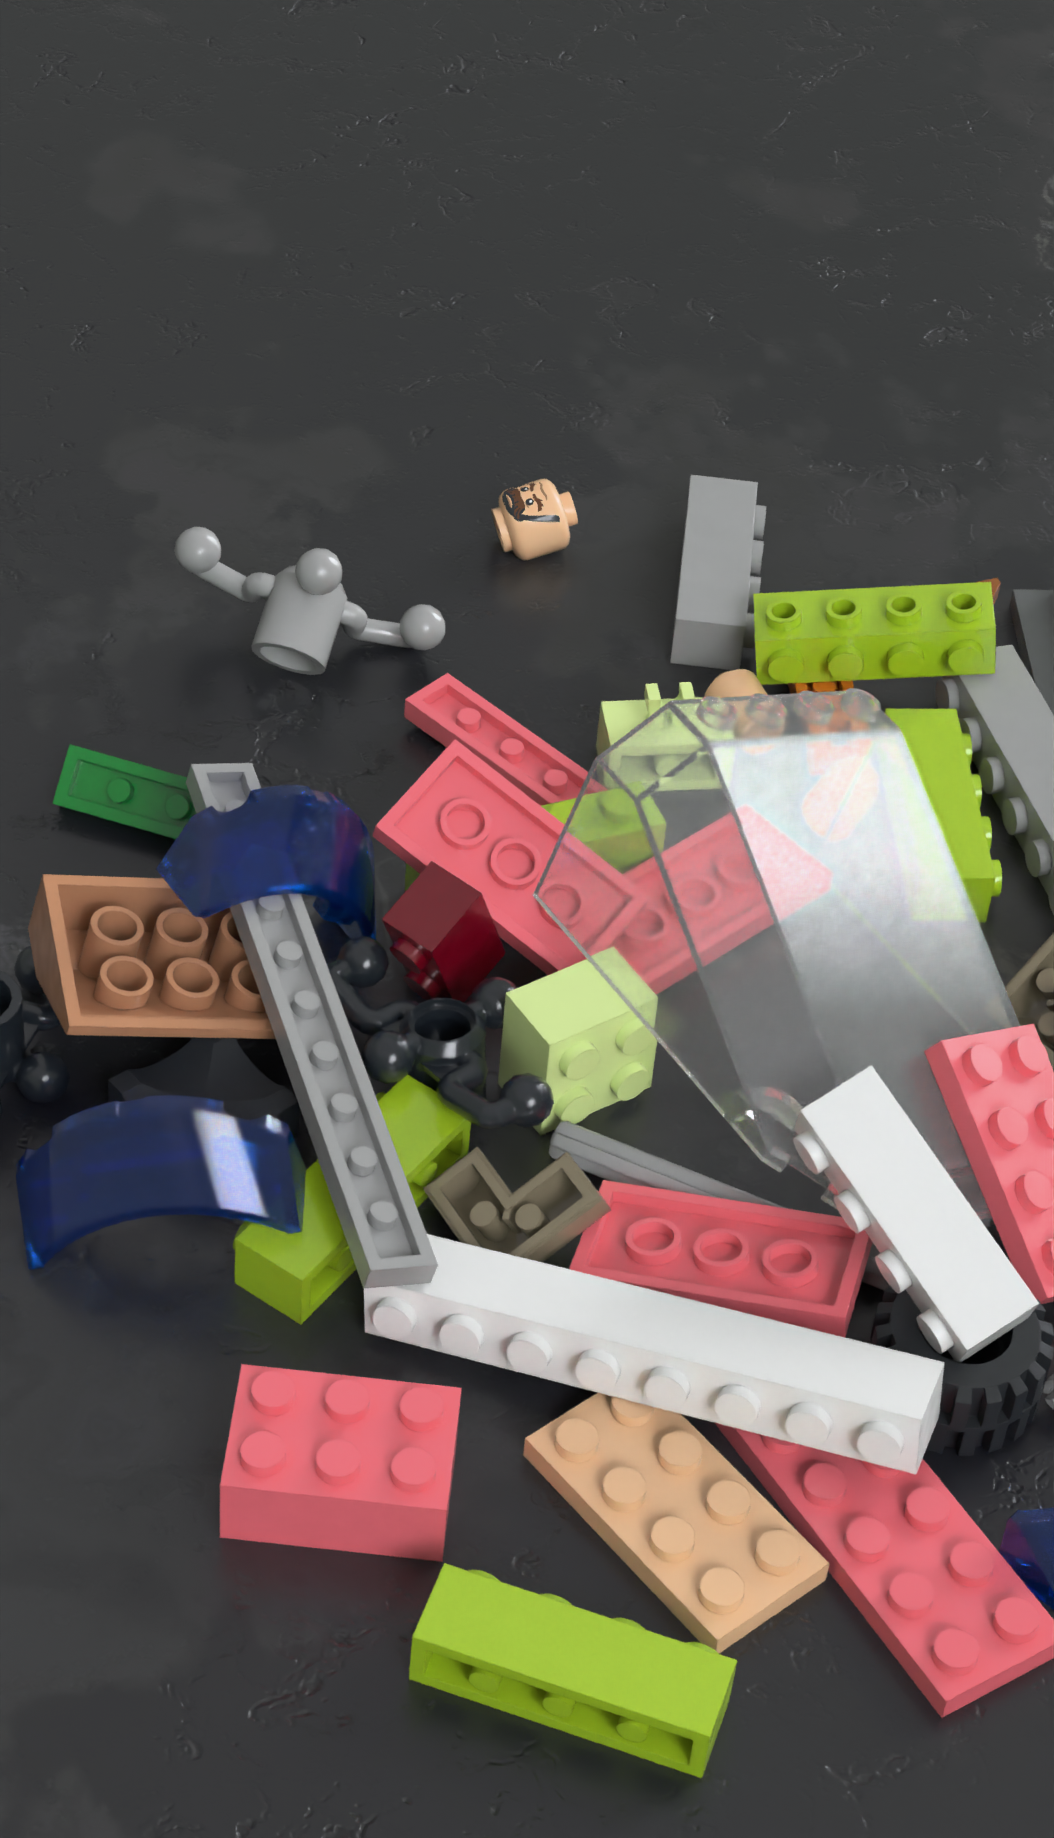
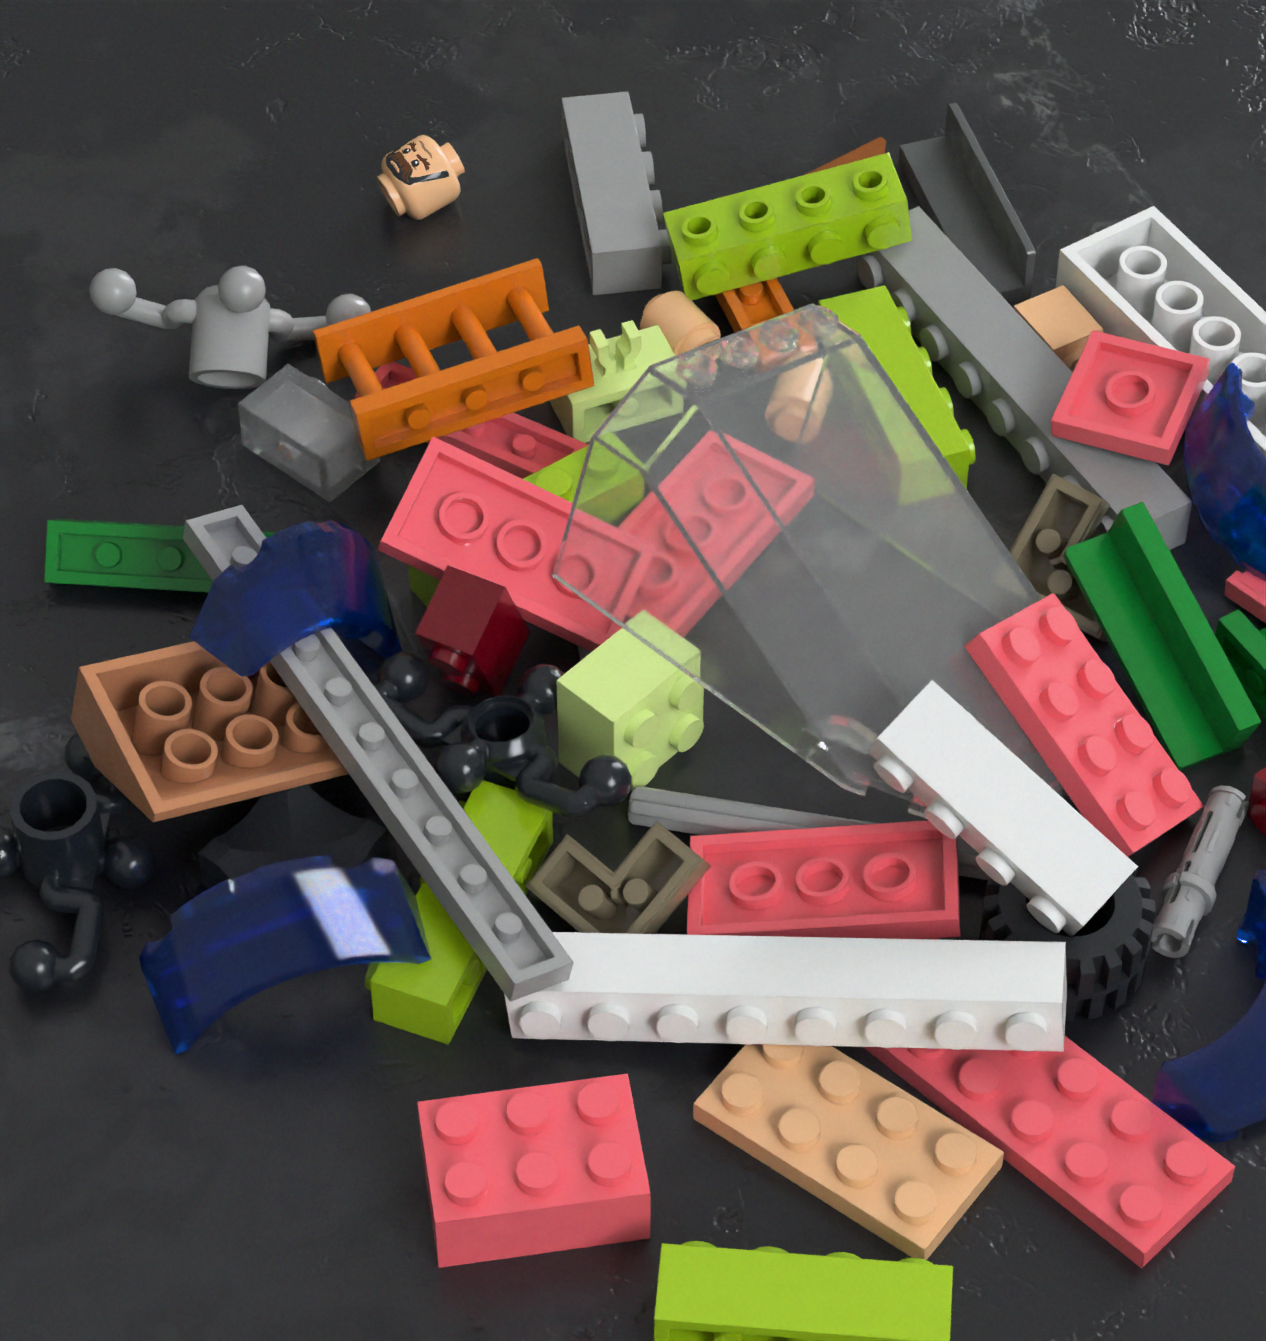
camera: 10 degrees left, 5 degrees up
(351, 723) = (304, 432): none -> clear brick
(509, 714) = (465, 393): none -> orange fence

